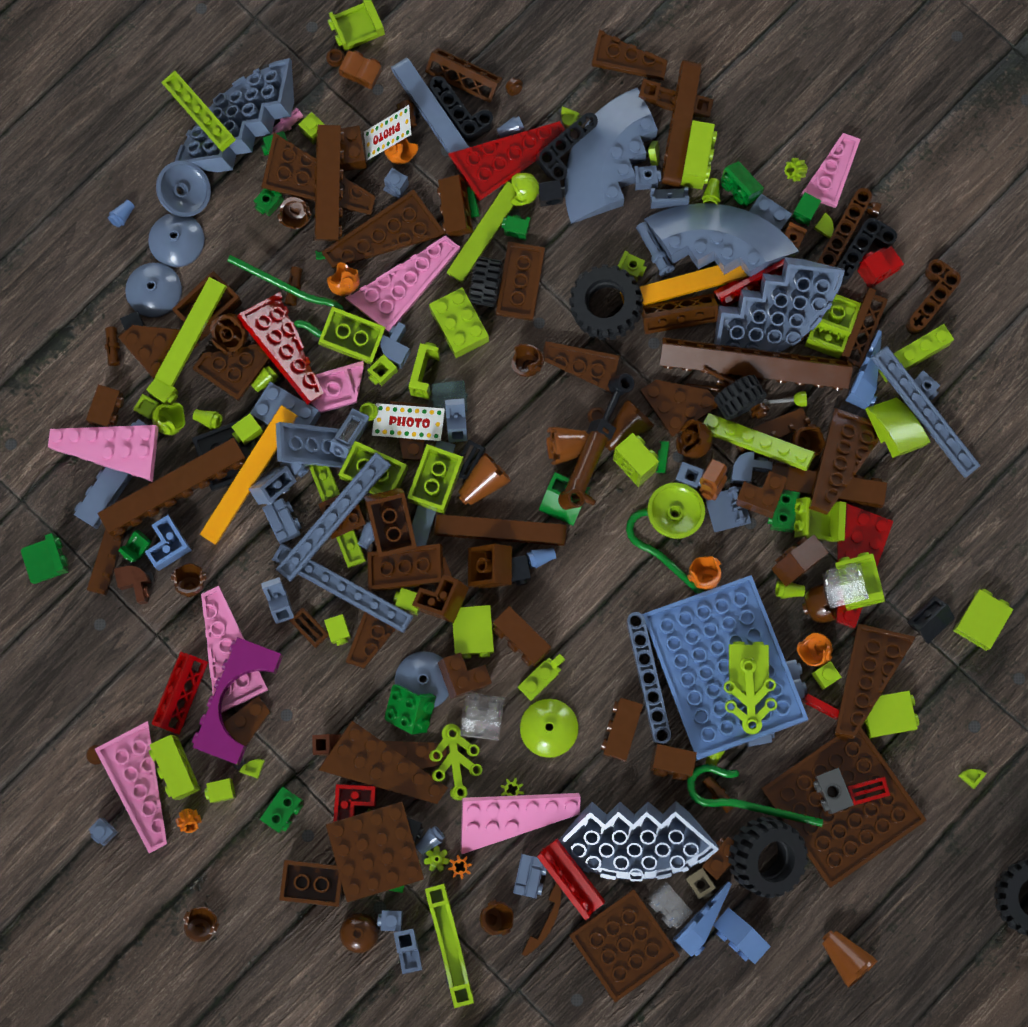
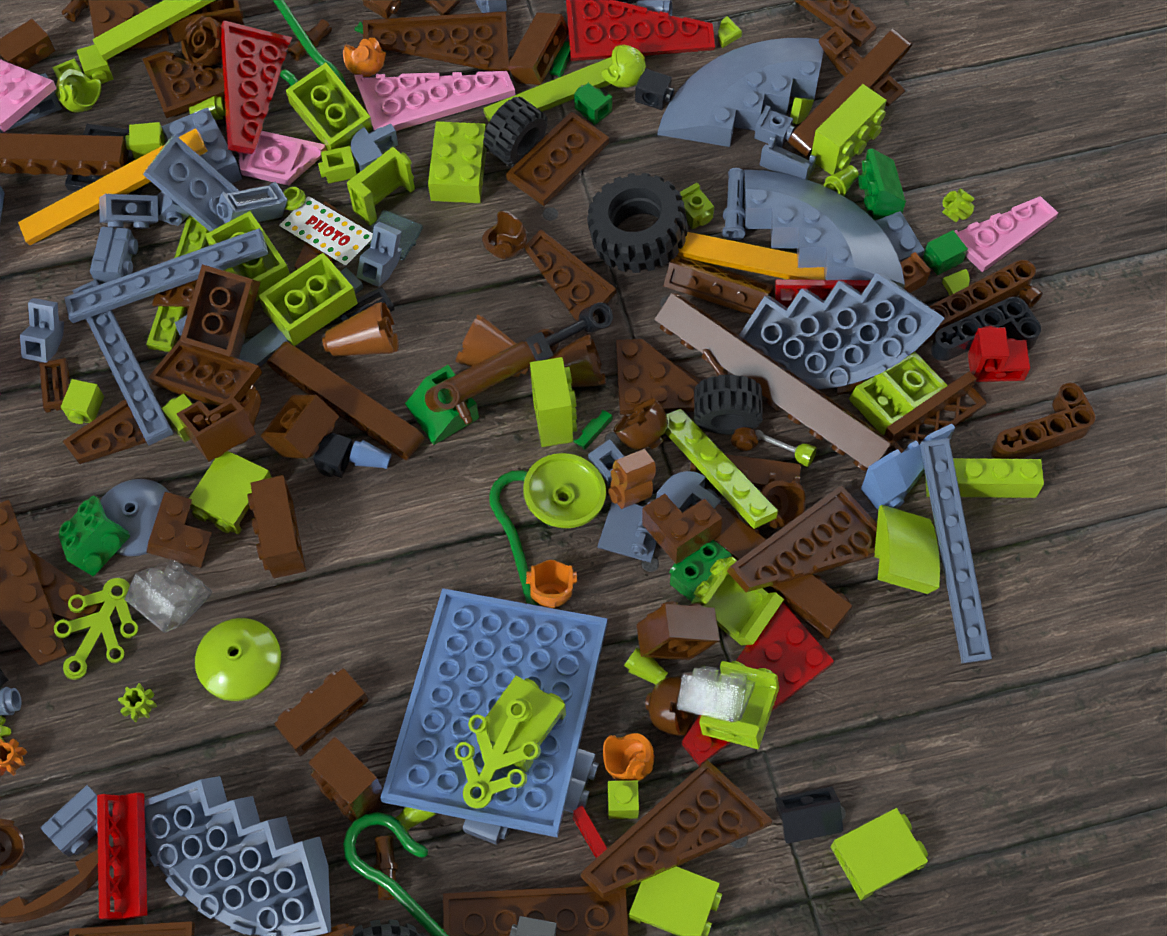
camera: 30 degrees right, 15 degrees down
(208, 418) = (120, 115): lime cone -> none
(503, 817) = (97, 727): bright pink wing -> none
(541, 677) = (272, 593): lime hinge -> none
(568, 142) = (708, 47): black beam -> none
(650, 668) = (395, 682): sand blue beam -> none
(927, 385) = (977, 523): sand blue brick -> none

